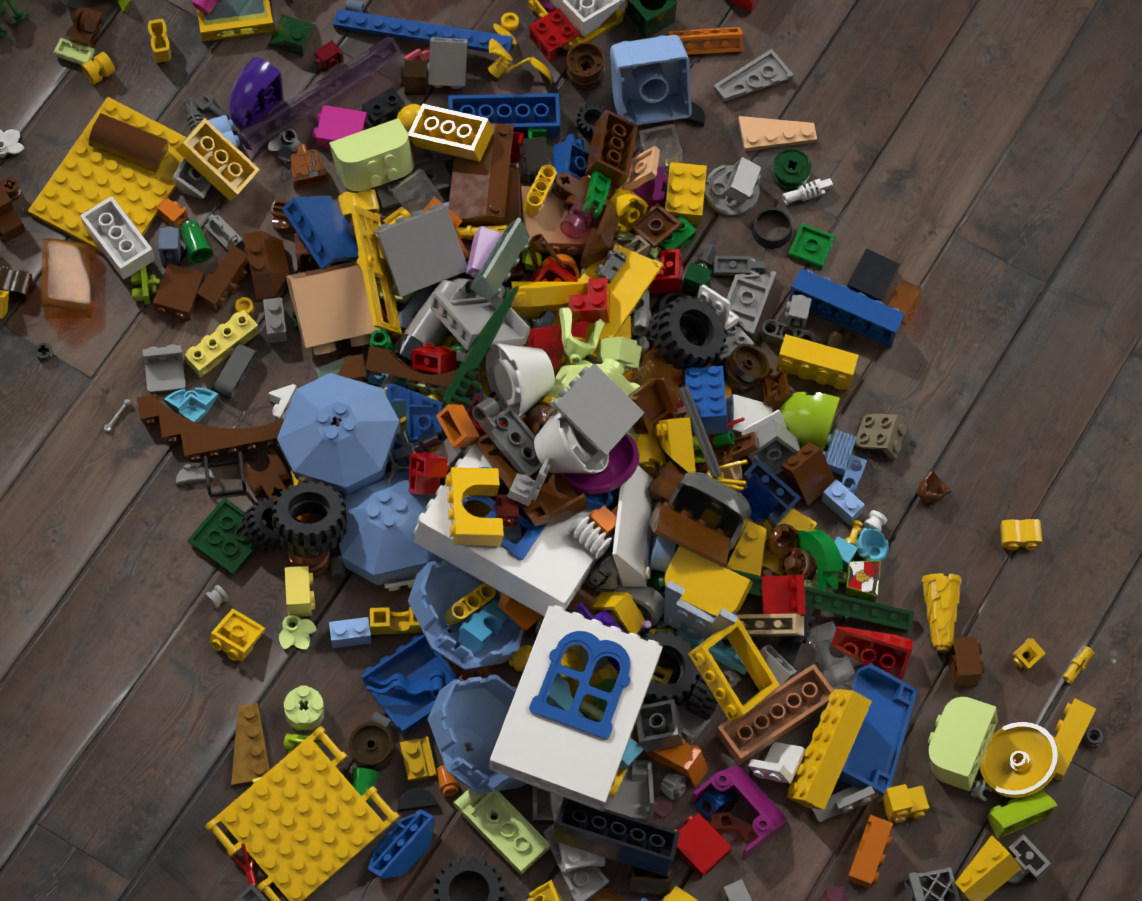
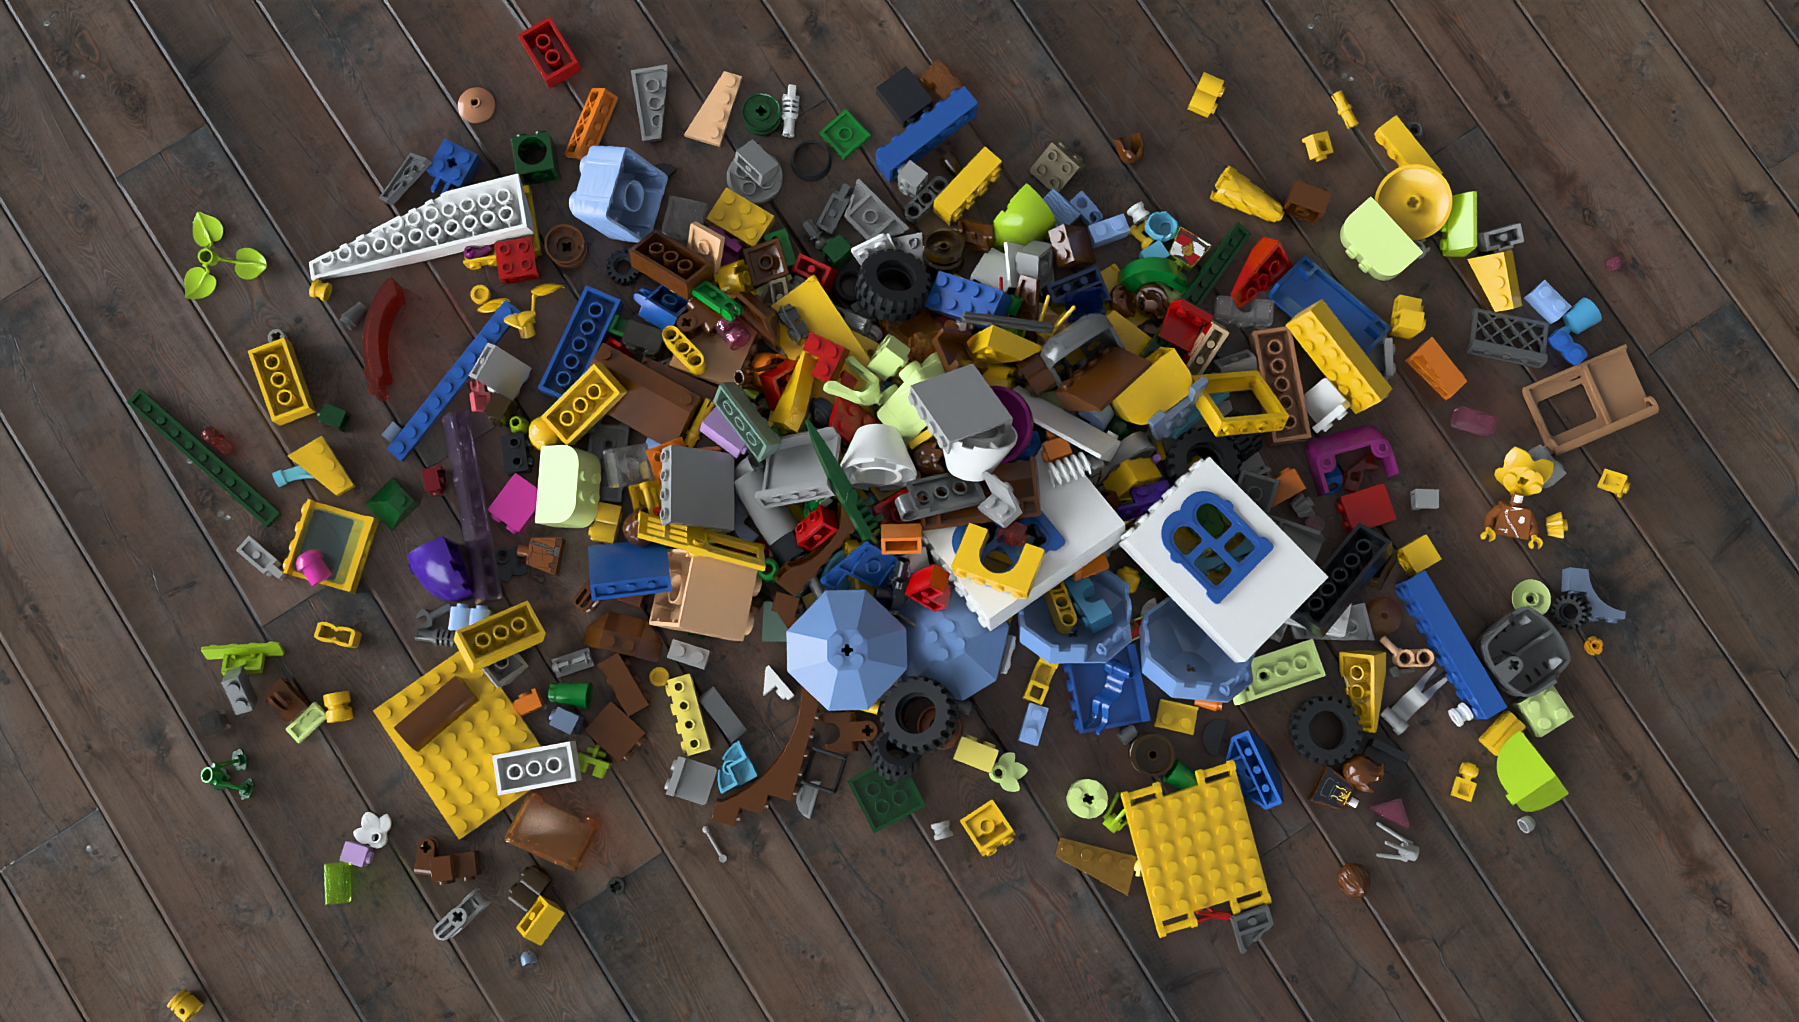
camera: 65 degrees left, 15 degrees up
(410, 96) = (523, 425): none -> lime cone

